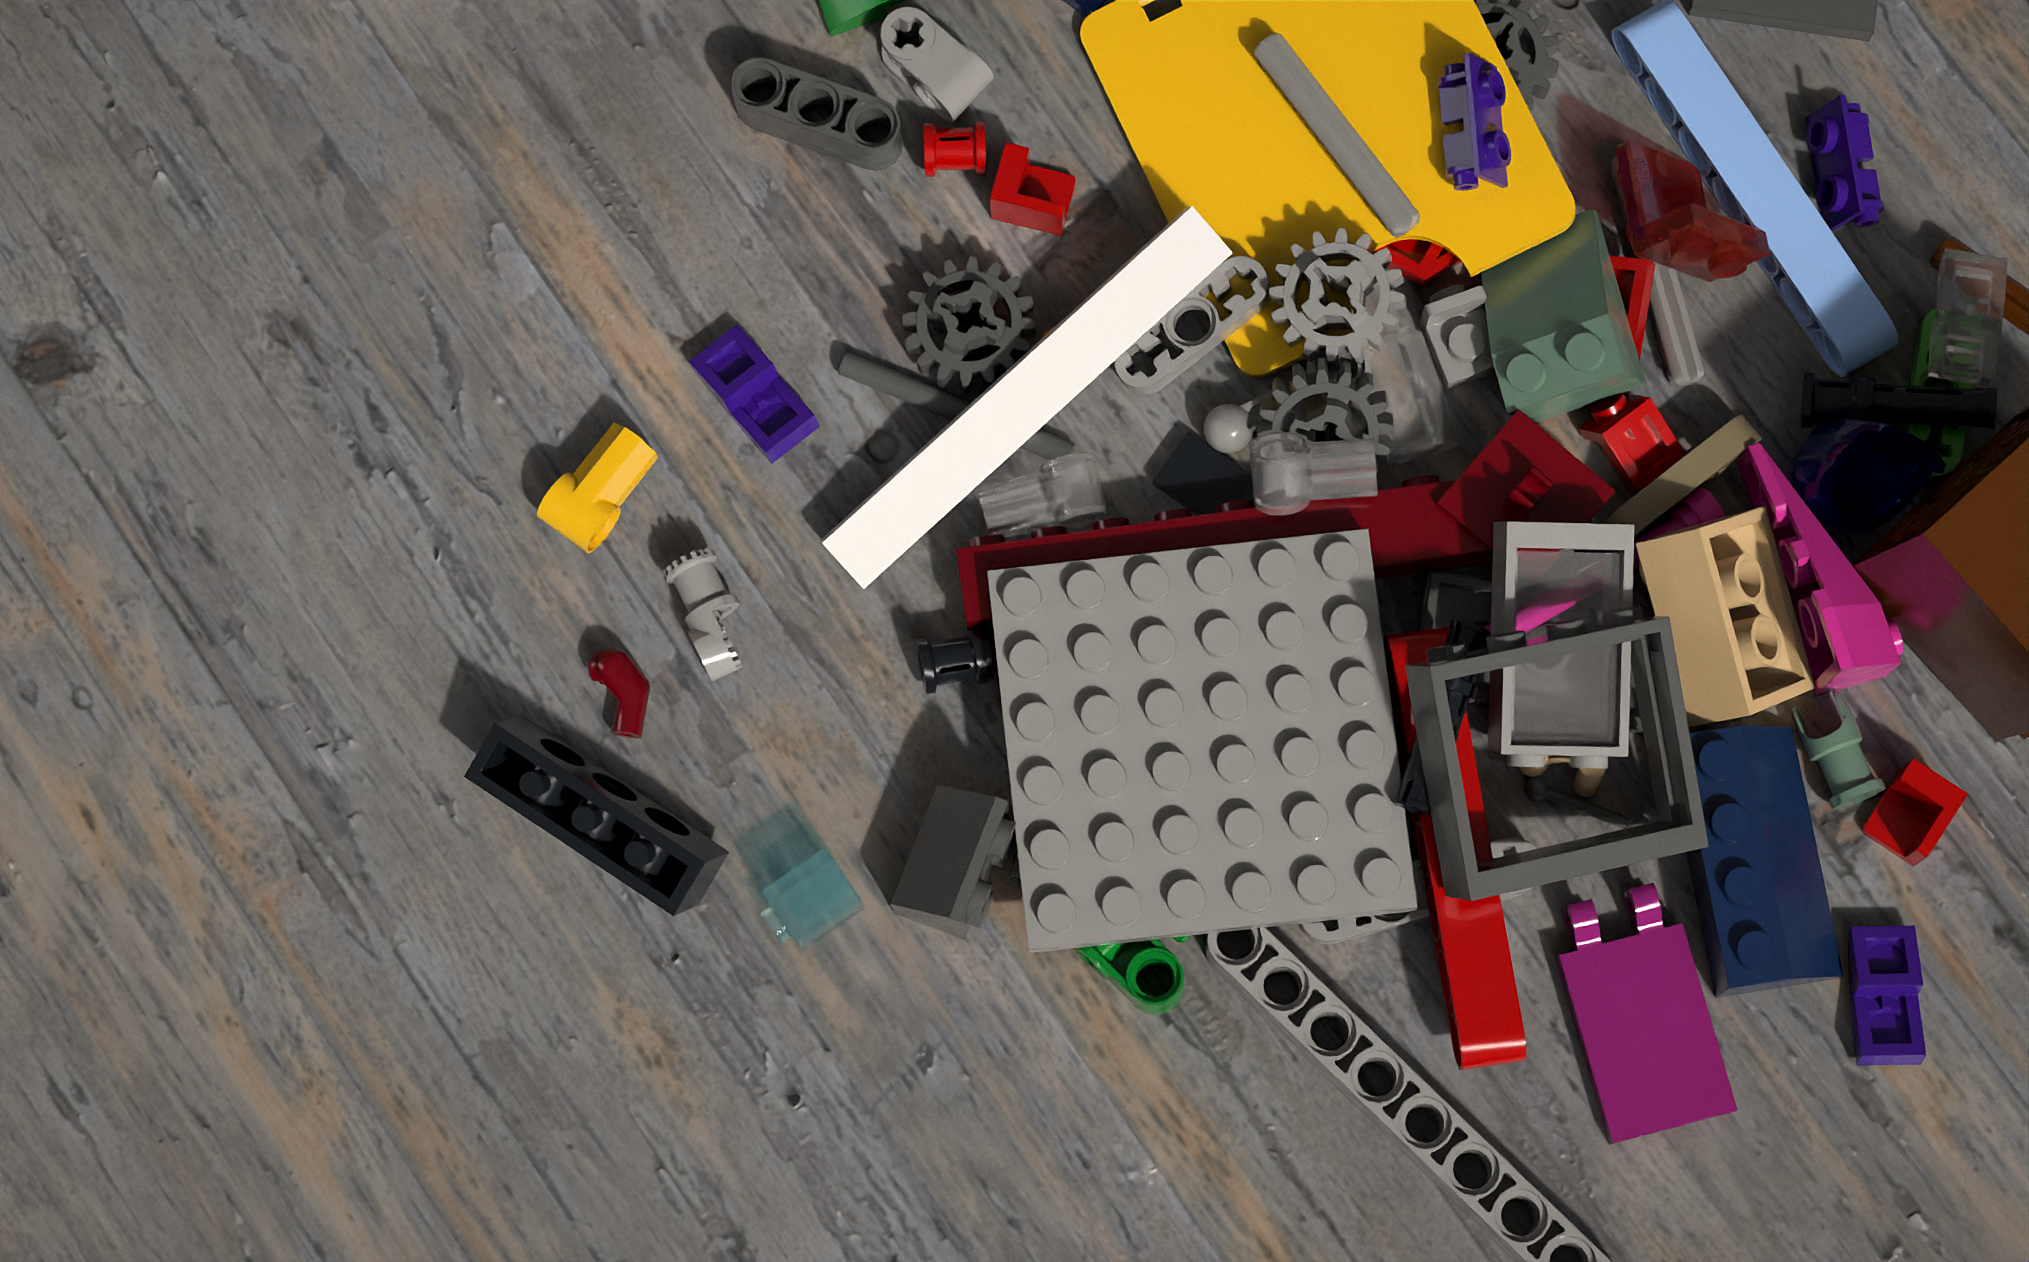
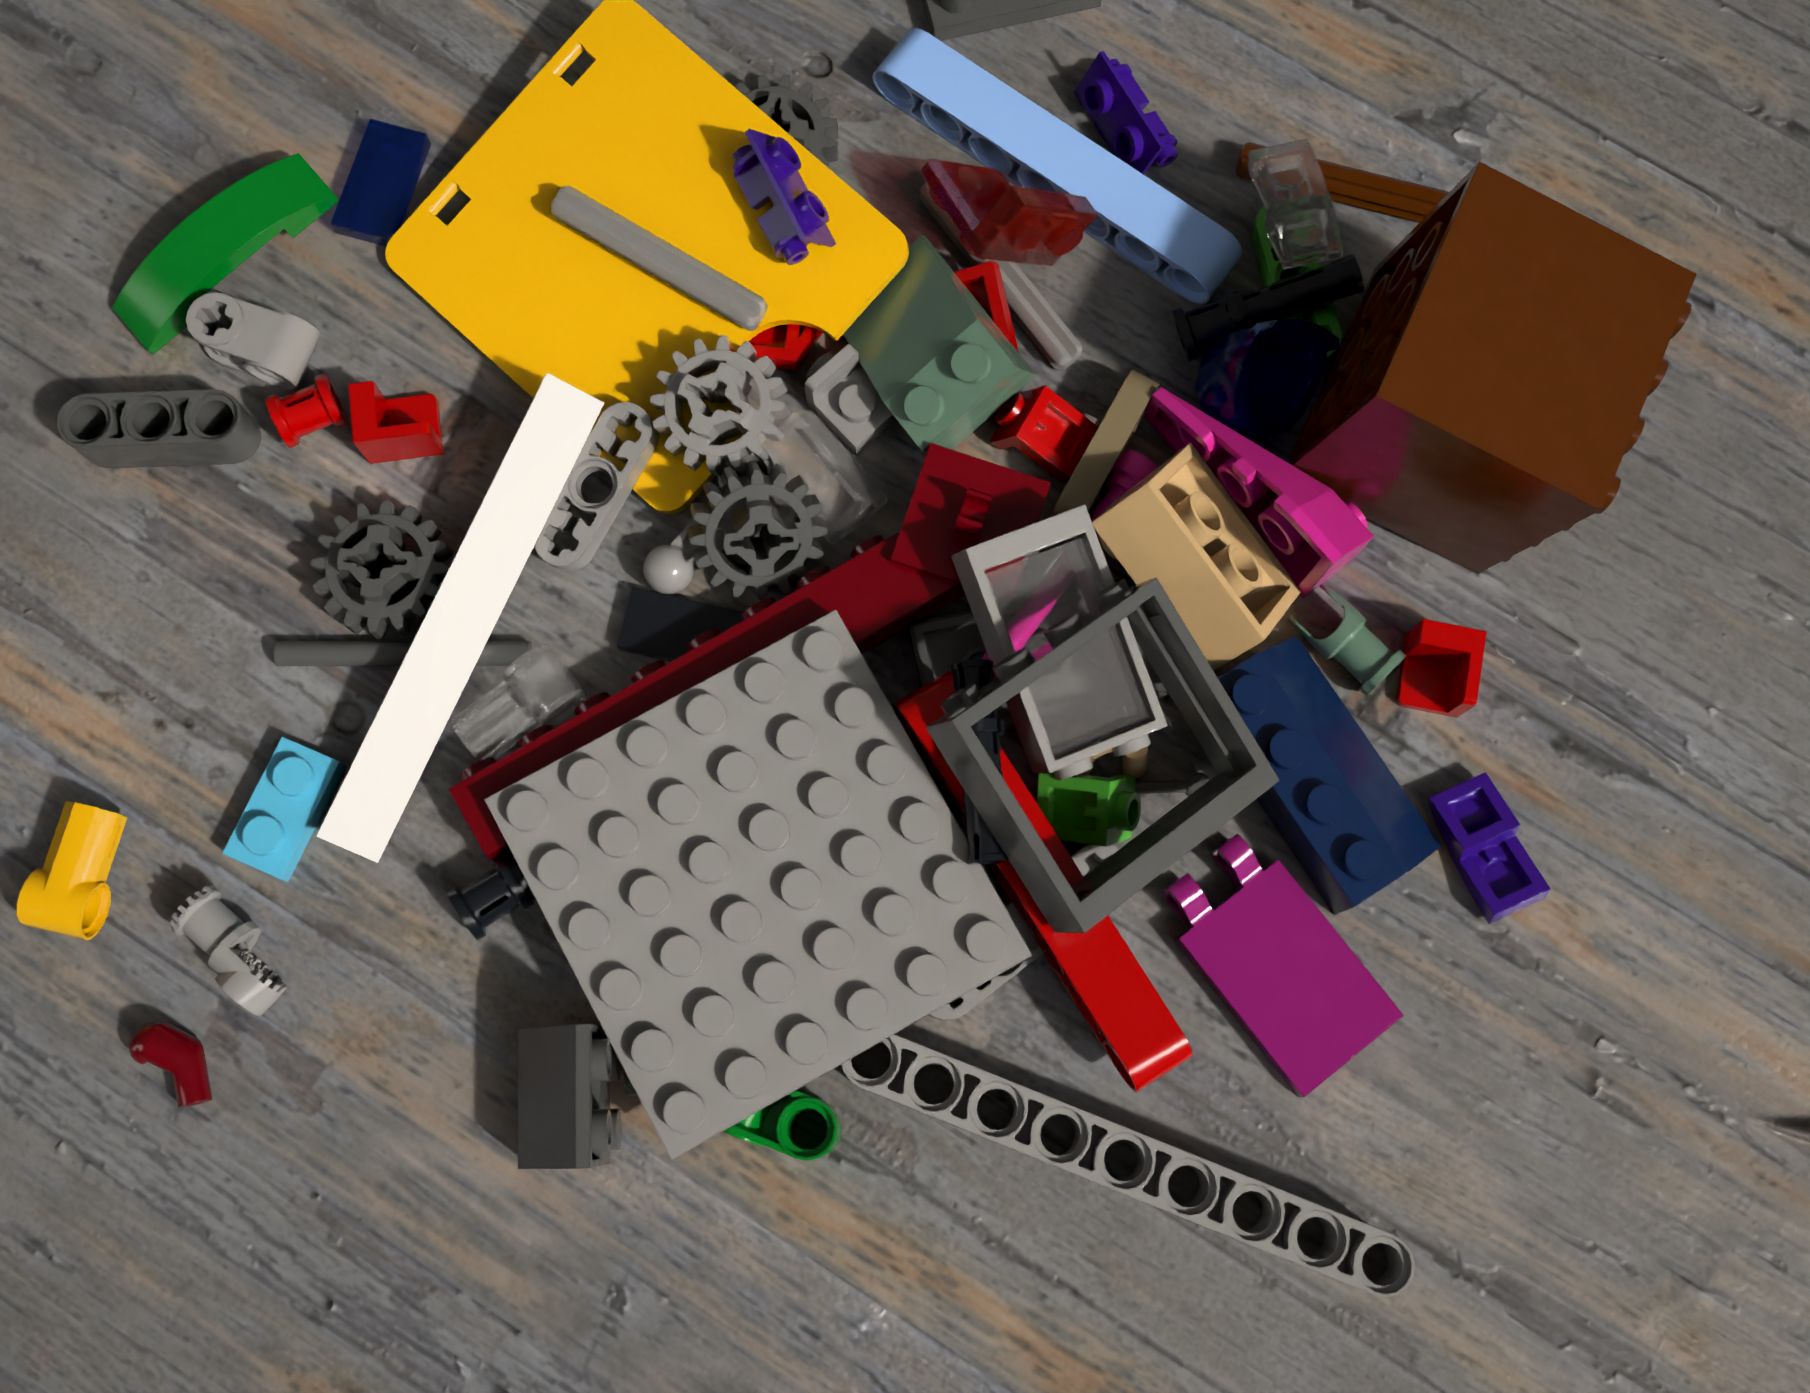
camera: 30 degrees left, 0 degrees up
(596, 814) = (185, 1203): black brick -> none
(754, 394) = (200, 717): dark purple slope -> none
(798, 507) = (284, 809): none -> medium azure plate
(810, 901) = (439, 1195): clear light blue brick -> none
(1294, 472) = (745, 584): clear piece -> none
(1527, 803) = (1090, 807): none -> bright green bracket

